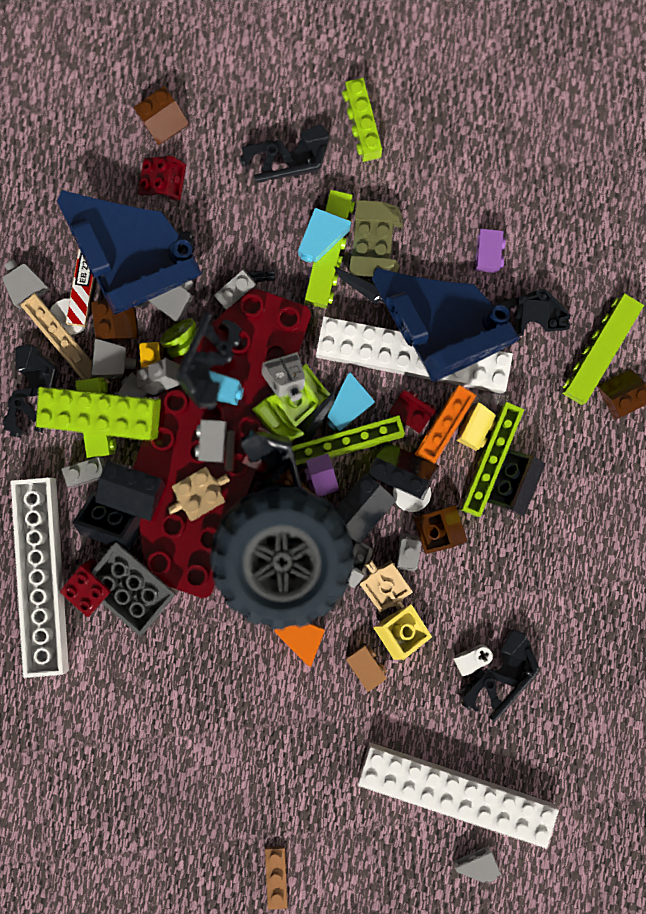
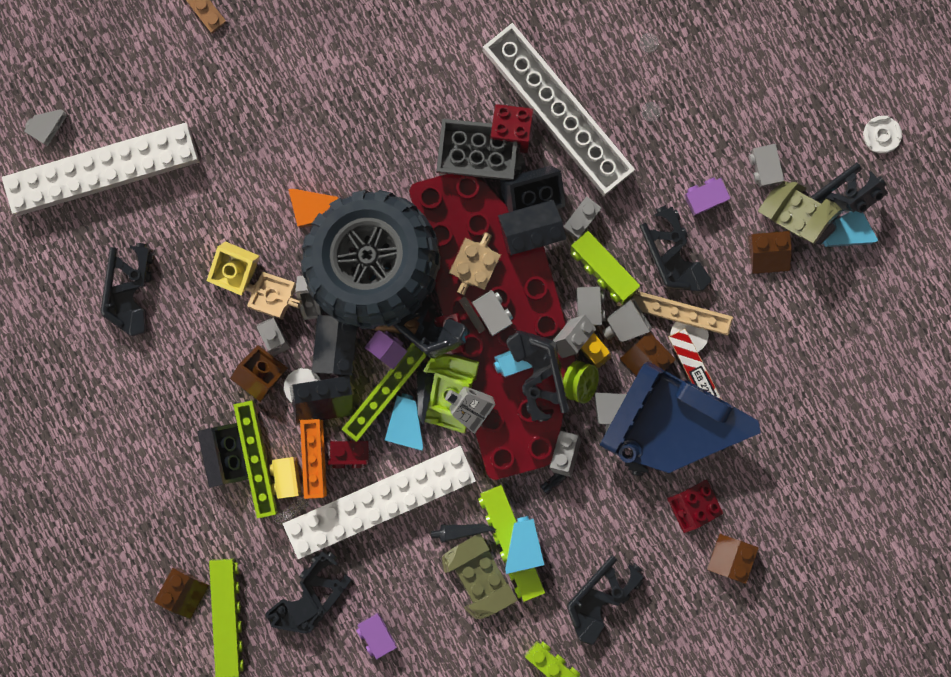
camera: 145 degrees right, 0 degrees up
(22, 283) = (745, 336): light grey torso -> none
(98, 413) = (600, 272): lime brick -> none
(366, 667) = (243, 219): medium nougat brick -> none
(445, 321) = (373, 545): dark blue panel -> none
(470, 661) = (162, 282): white piece -> none

